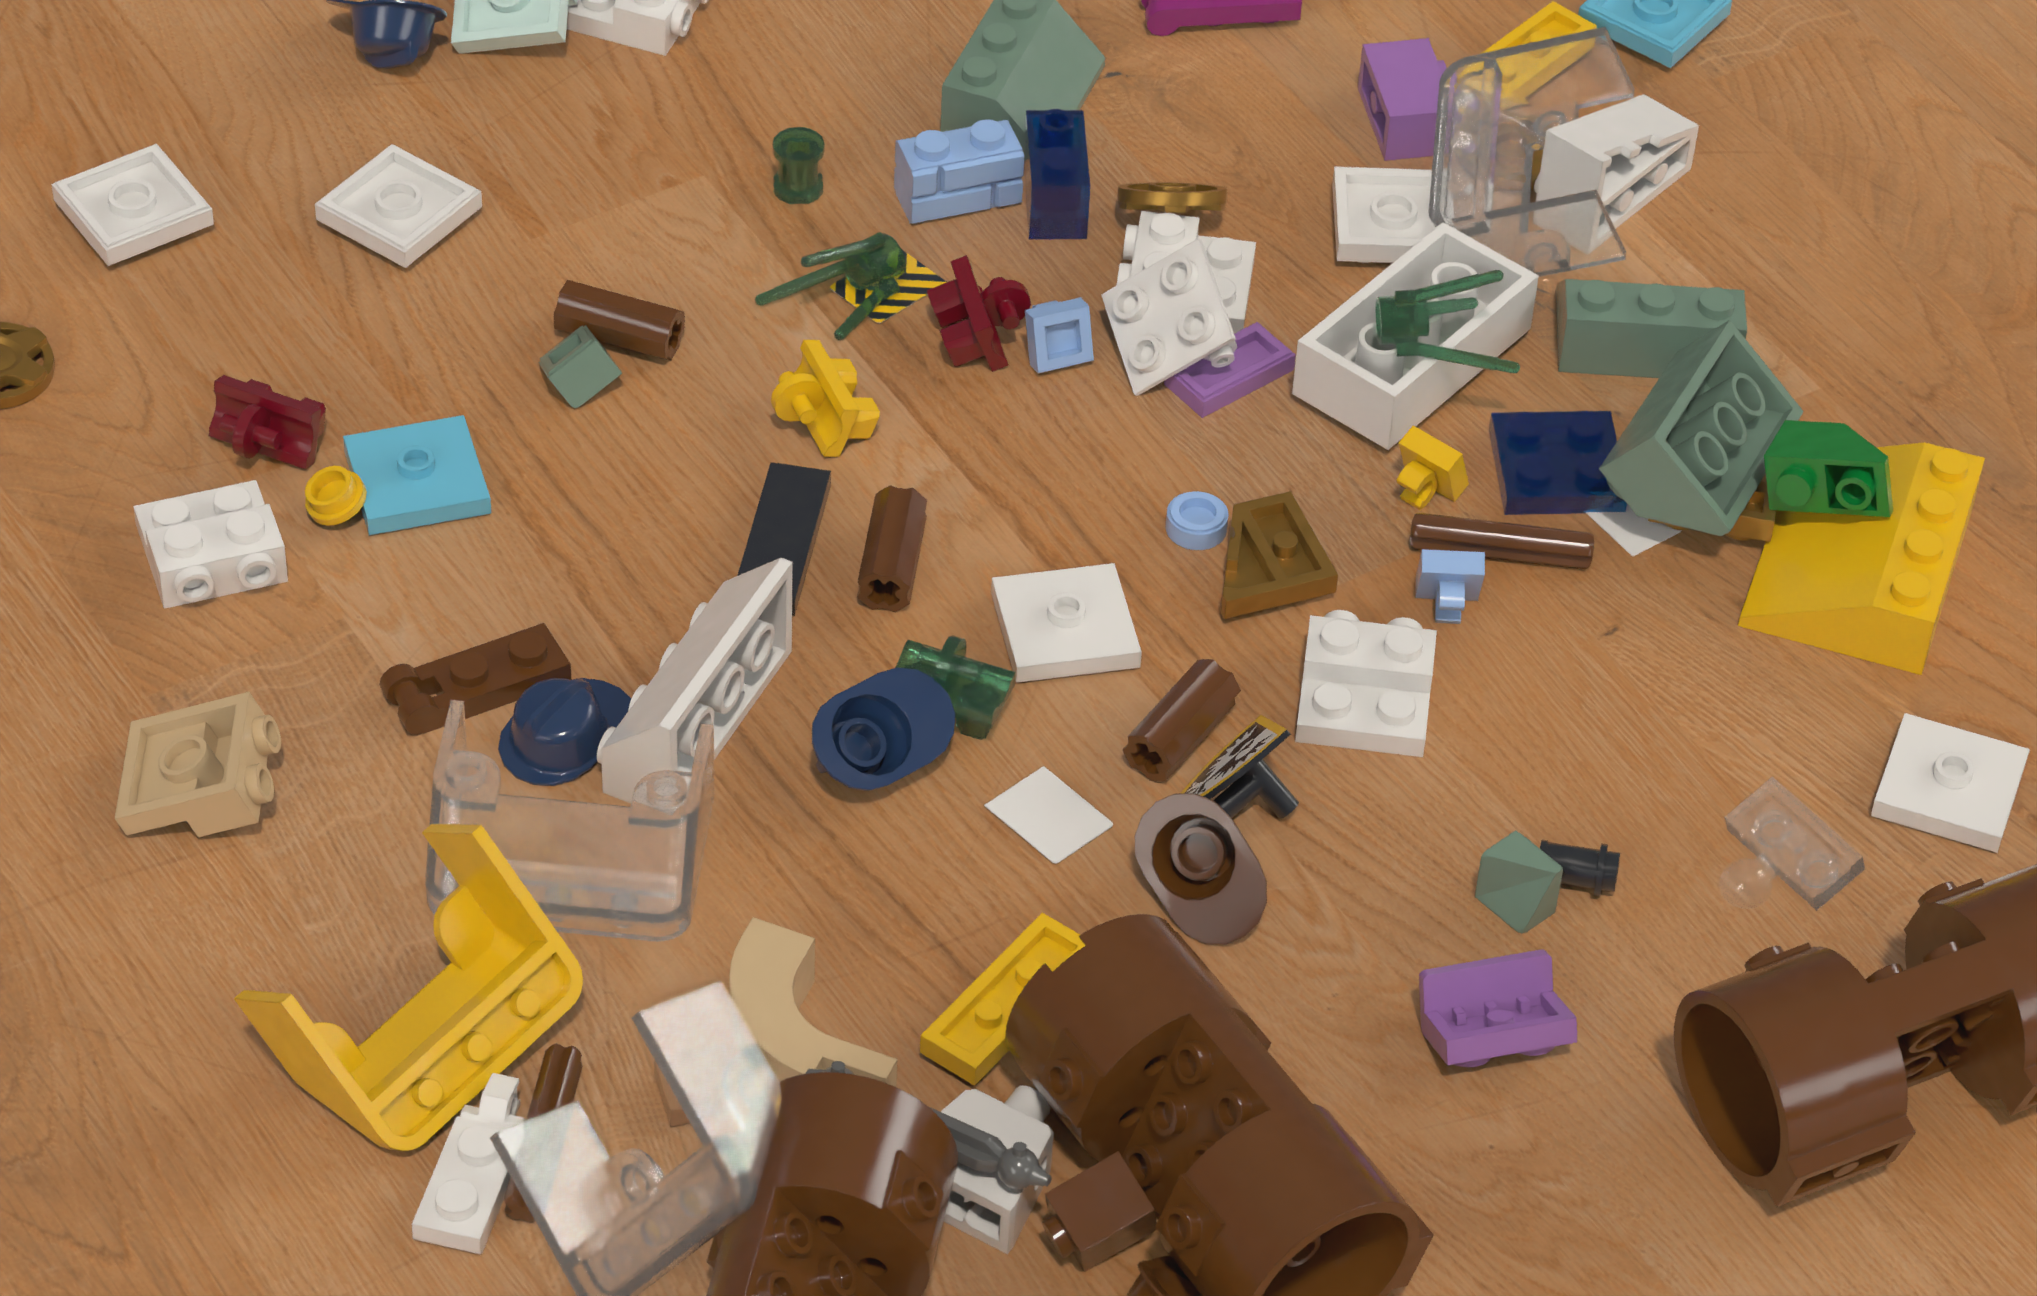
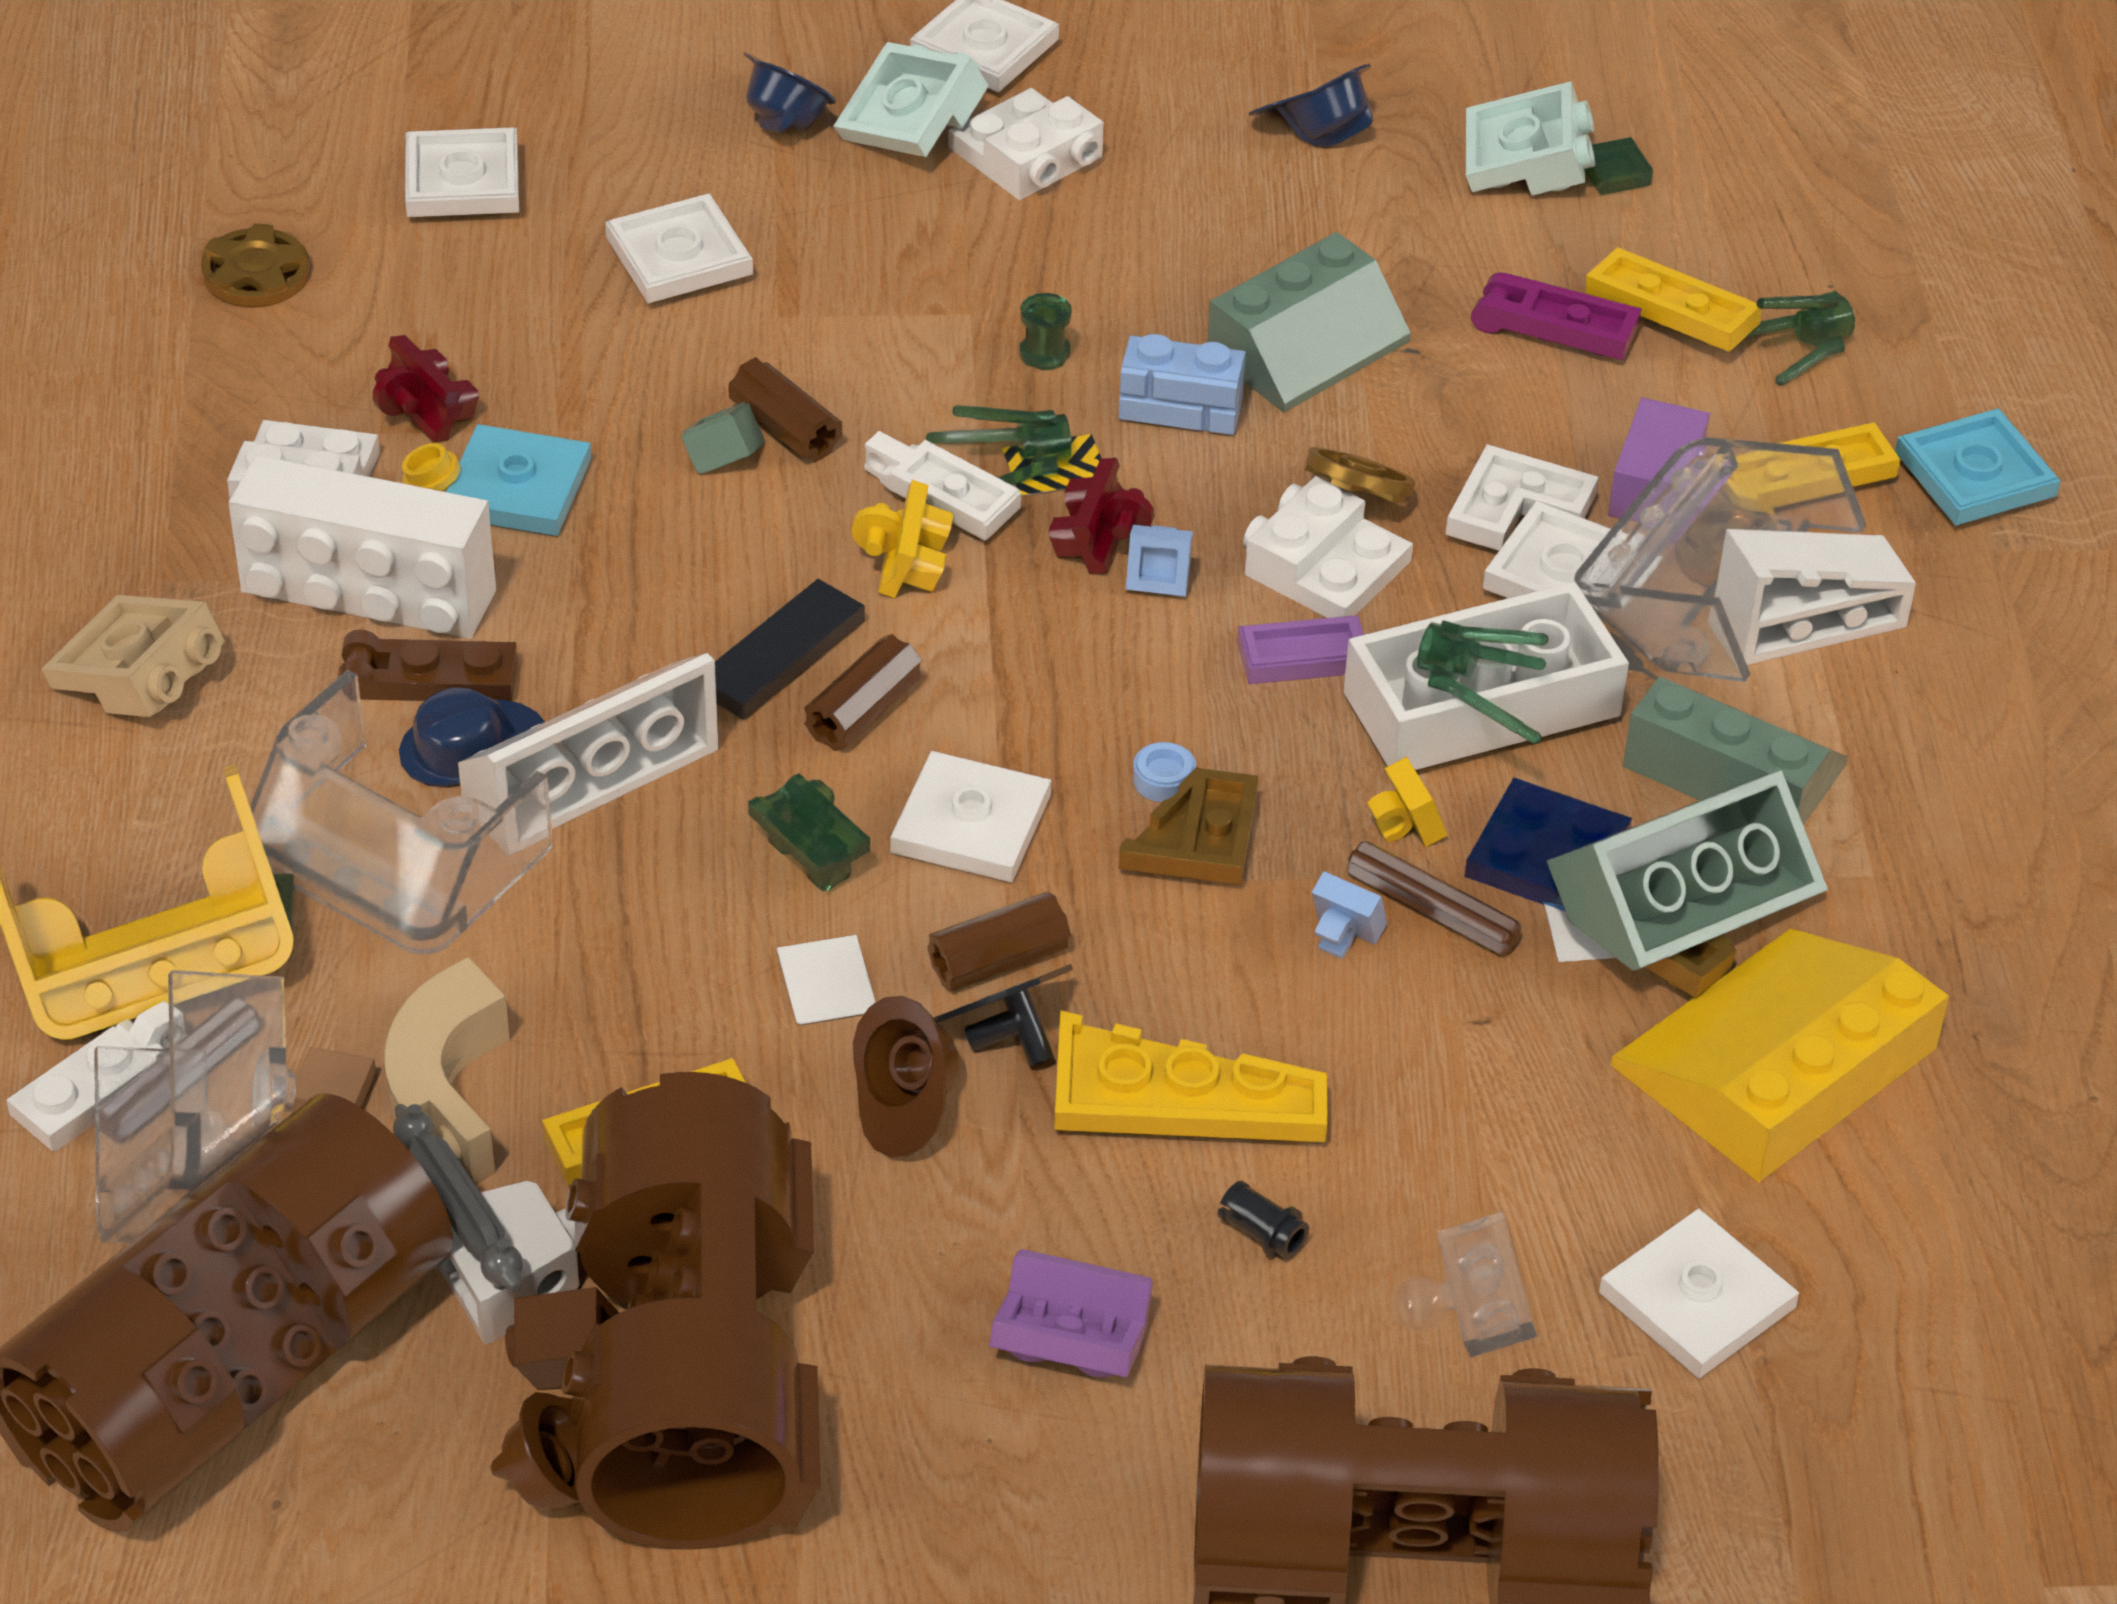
camera: 30 degrees right, 0 degrees up
(350, 585) = (363, 546): none -> white brick
(781, 330) = (974, 496): none -> white hinge
(883, 729) = (711, 841): dark blue piece -> none
(1057, 174) = (1266, 418): clear blue slope -> none
(1170, 318) = (1267, 580): white hinge -> none
(1301, 164) = (1507, 487): none -> white plate
(1366, 684) = (1198, 975): white plate -> none
(1426, 786) = (1150, 1087): none -> yellow wing
(1518, 882) = (1191, 1210): sand green slope -> none
(1826, 471) = (1766, 944): green slope -> none

